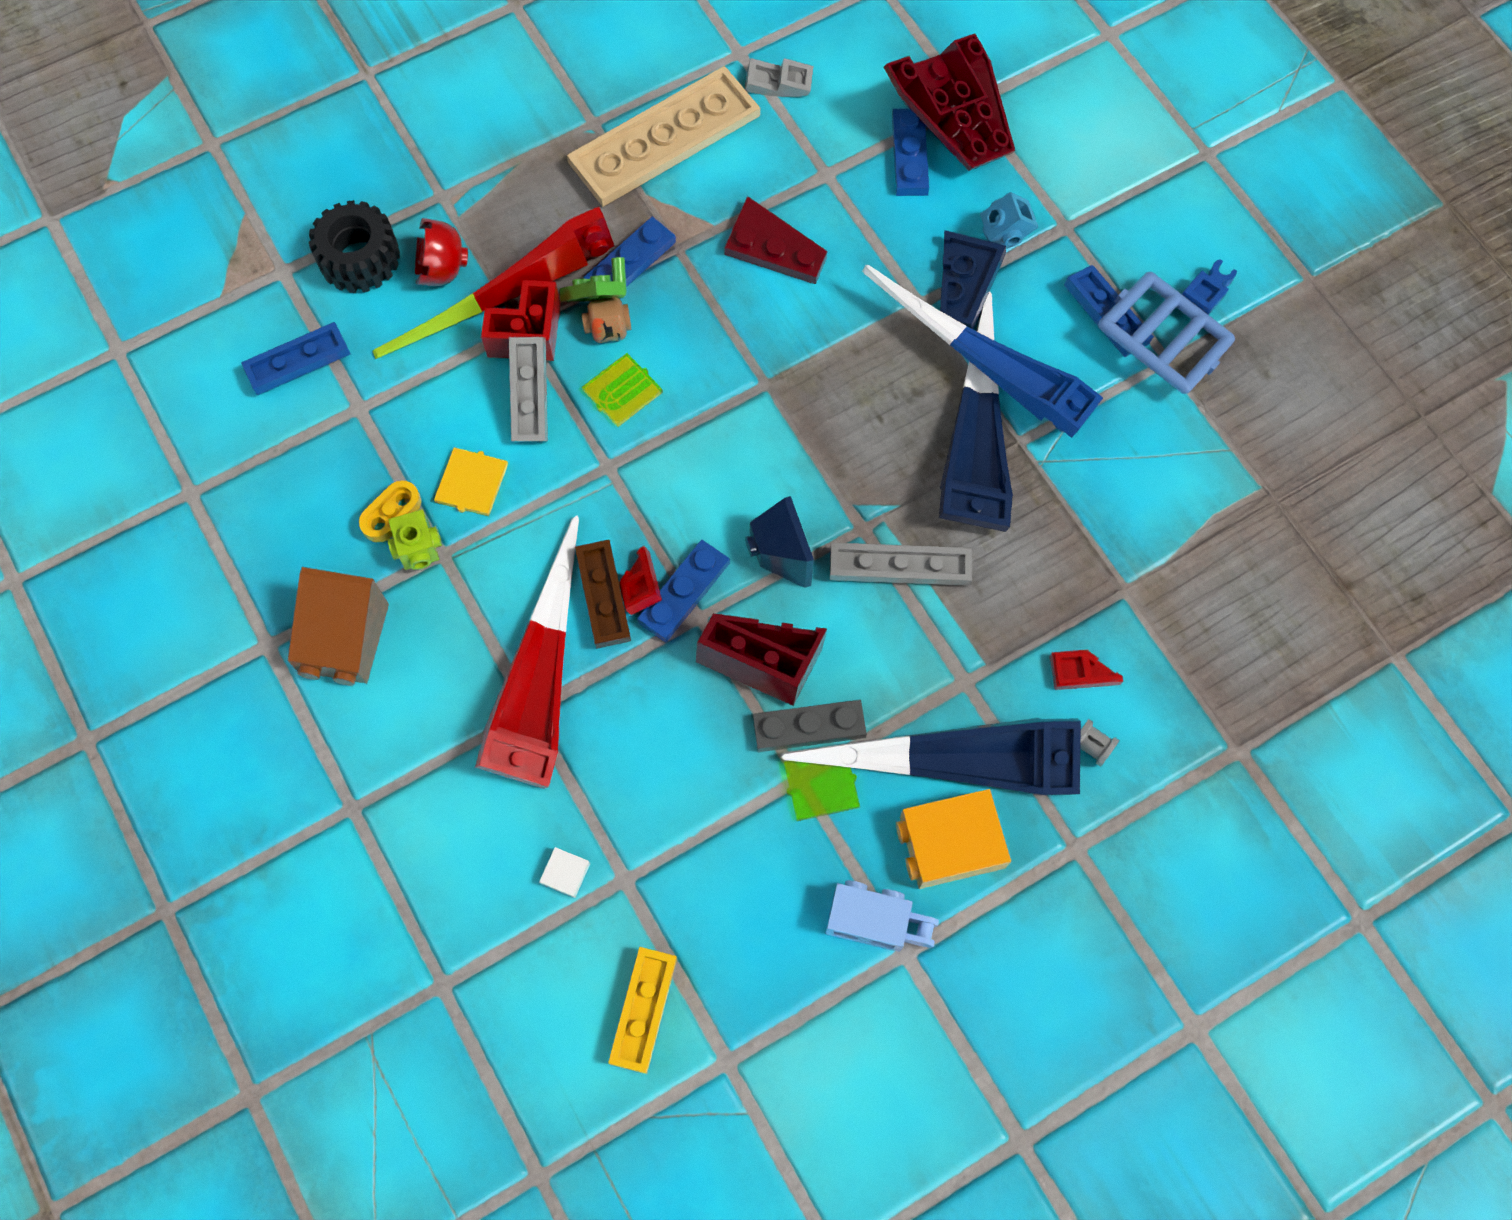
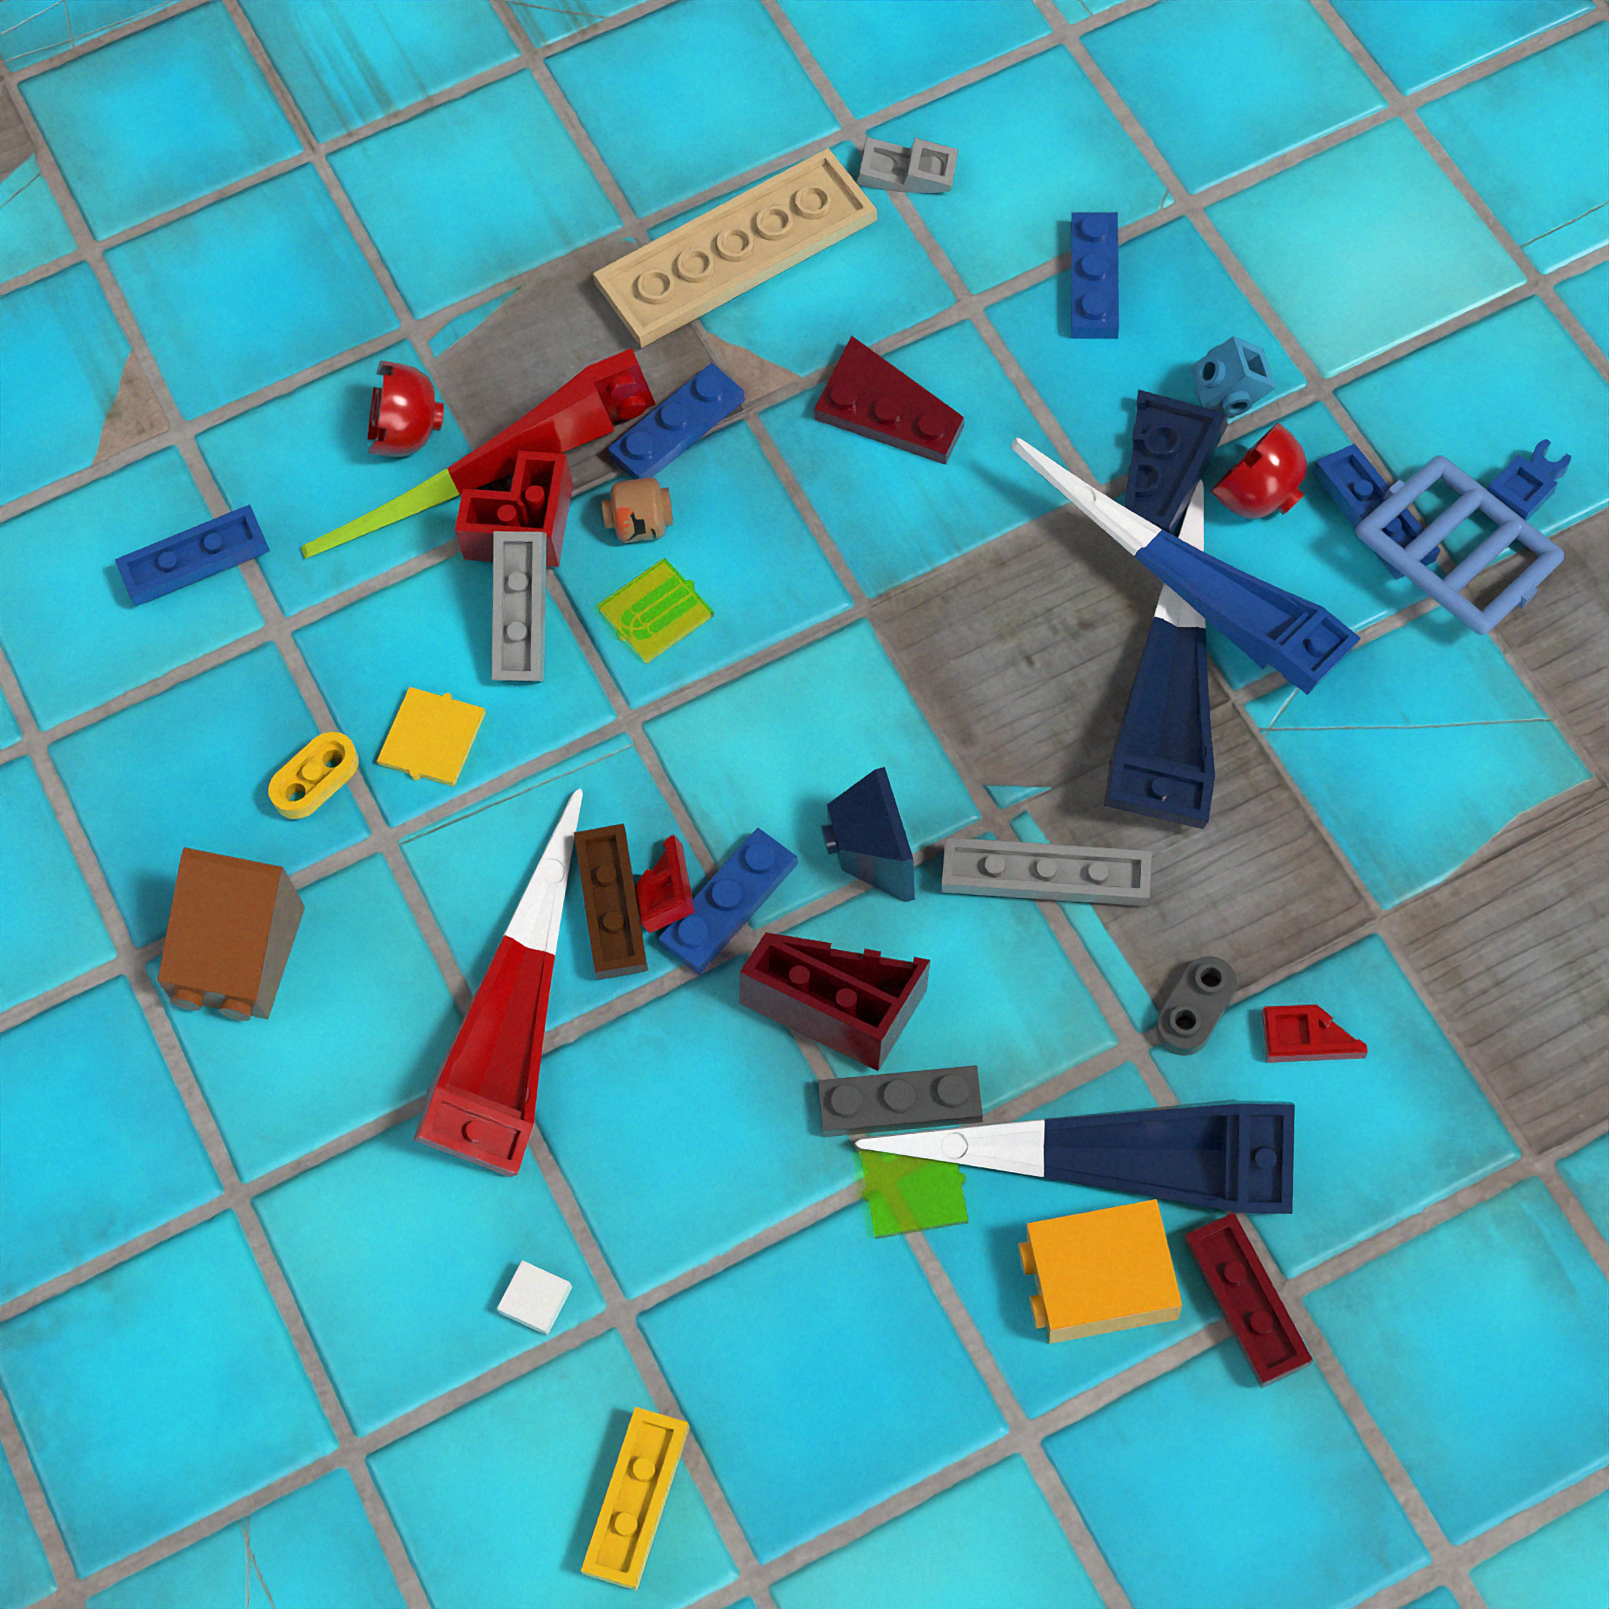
camera: 10 degrees right, 5 degrees down
(350, 225) = (281, 368): black tyre -> none
(414, 540) = (345, 817): lime brick -> none
(598, 286) = (627, 461): bright green plate -> none
(877, 918) = (982, 1381): light blue brick -> none
(957, 101) = (1165, 203): dark red wedge -> none
(1008, 651) = (1198, 1003): none -> dark grey plate
(1034, 288) = (1265, 476): none -> red cylinder
(1052, 854) = (1248, 1300): none -> dark red plate
(1092, 738) = (1336, 1142): light grey bush -> none

